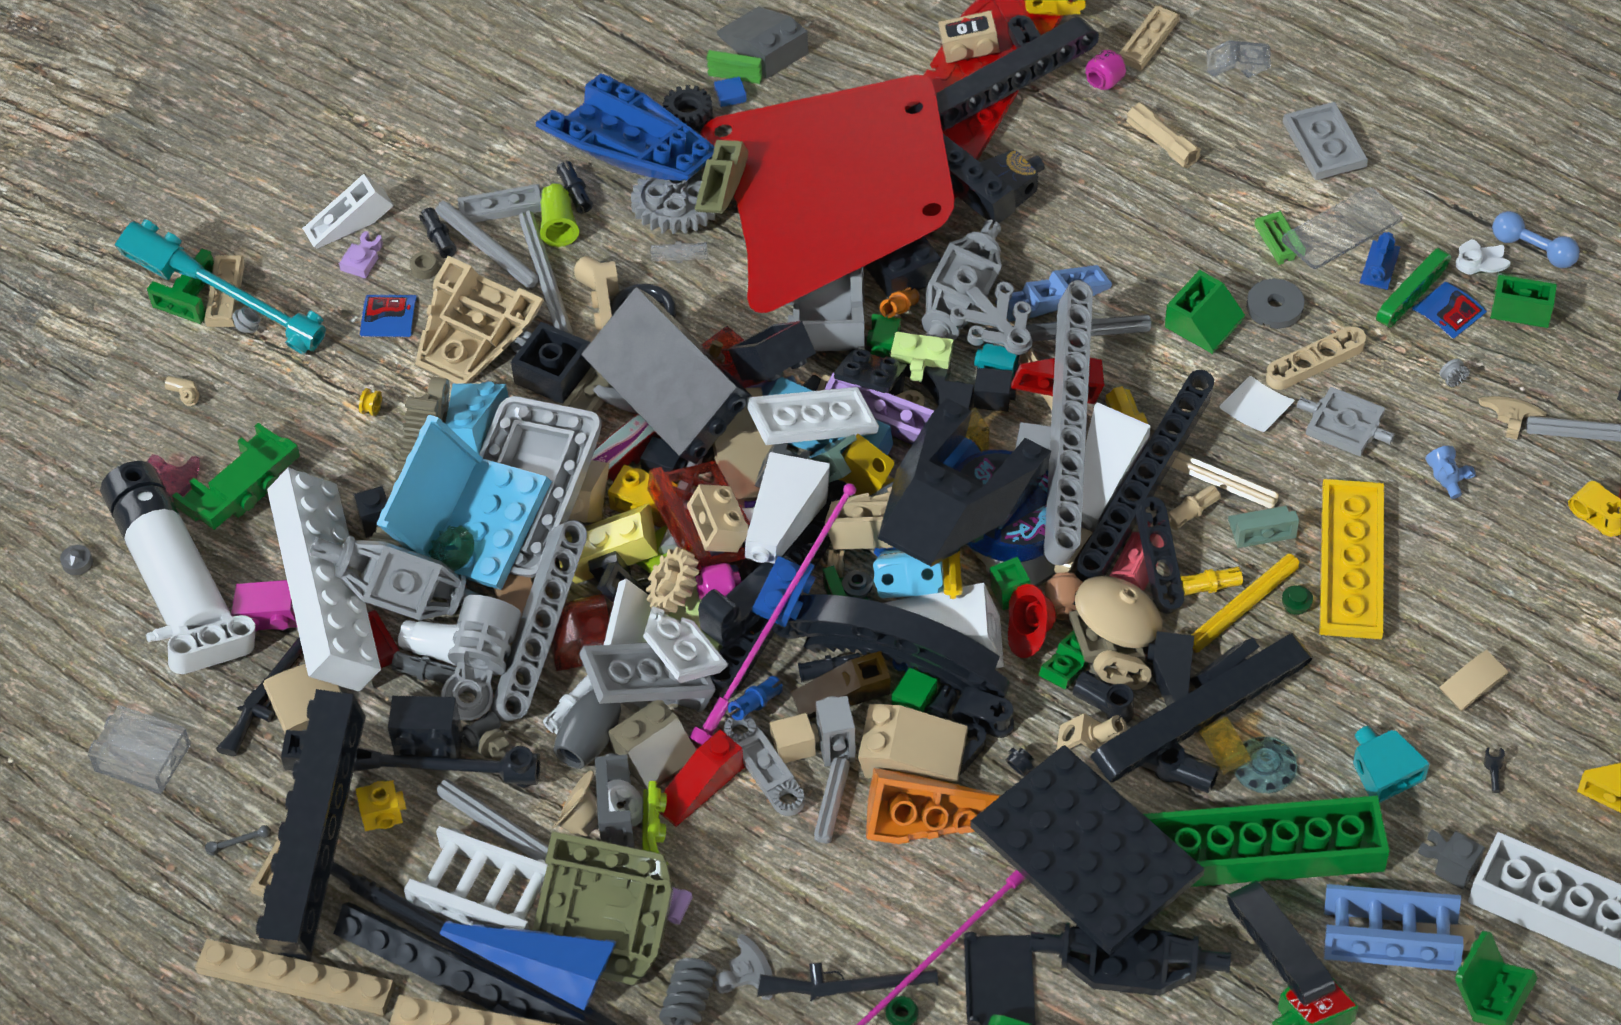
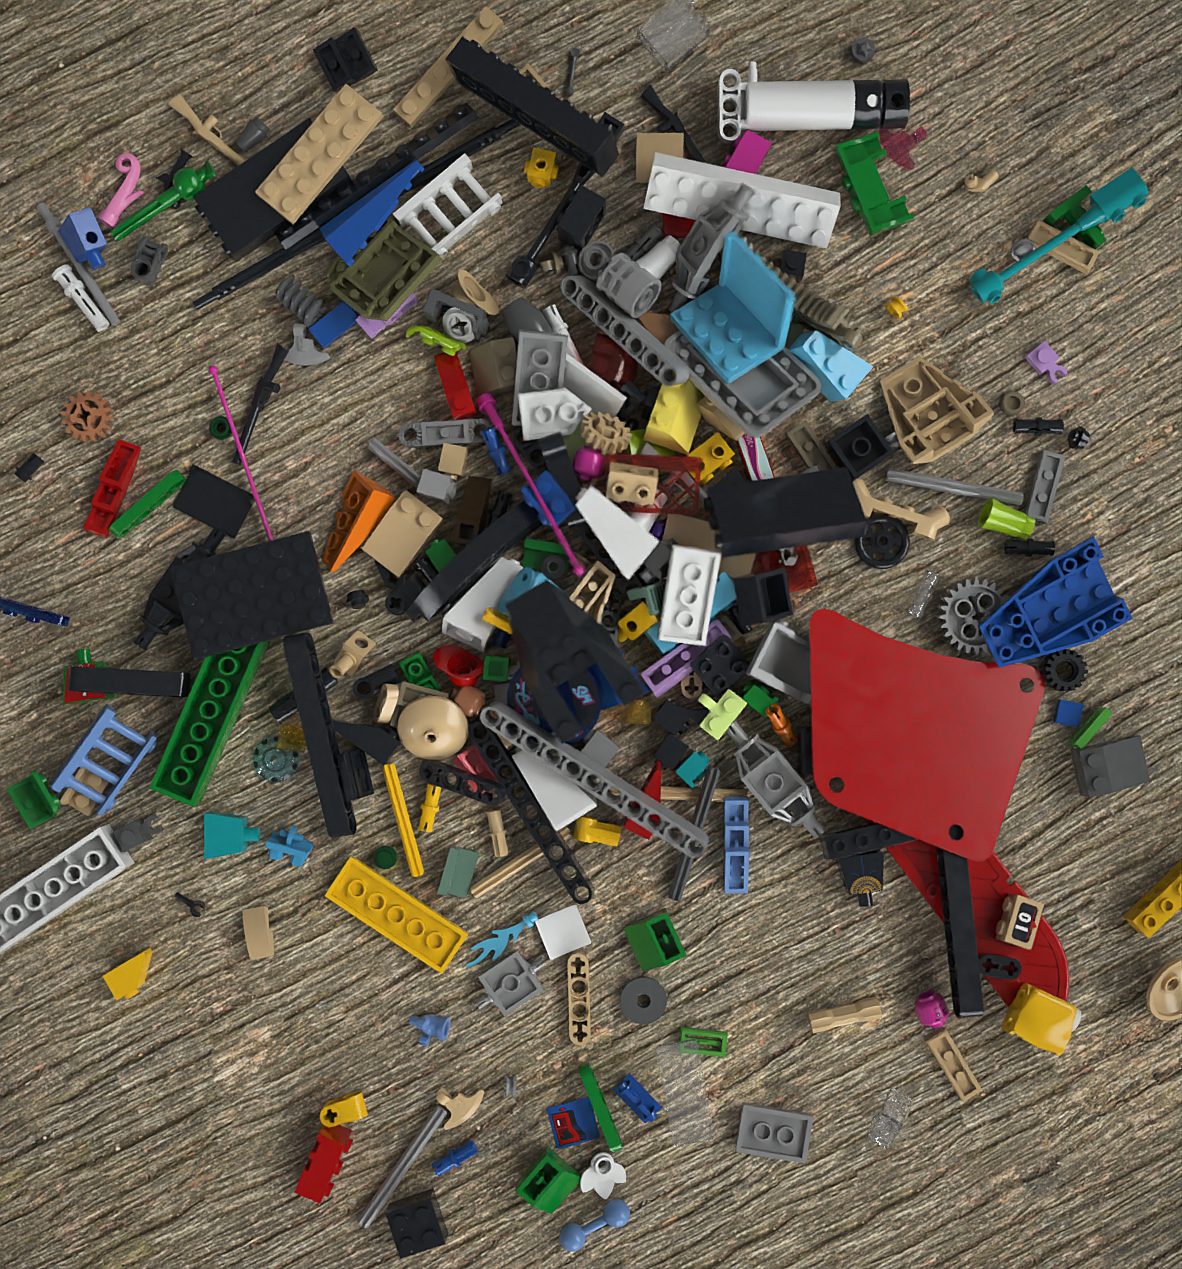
camera: 115 degrees right, 35 degrees up
(351, 211) = (1091, 368): white slope -> none
(387, 315) = (978, 357): sticker -> none
(432, 193) = (1078, 438): none -> black plate
(453, 558) = (713, 303): clear green gear -> none
(487, 244) = (1005, 456): light grey axle -> none
(492, 820) = (491, 243): light grey axle -> none
(690, 943) = (334, 324): none -> blue tile
(721, 176) = (967, 653): olive slope -> none
(992, 316) = (723, 781): light grey plant -> none
(1311, 452) = (499, 943): none -> medium azure piece
(1349, 694) = (289, 843): none -> dark azure hips
(1568, 388) = (455, 1158): none -> blue axle

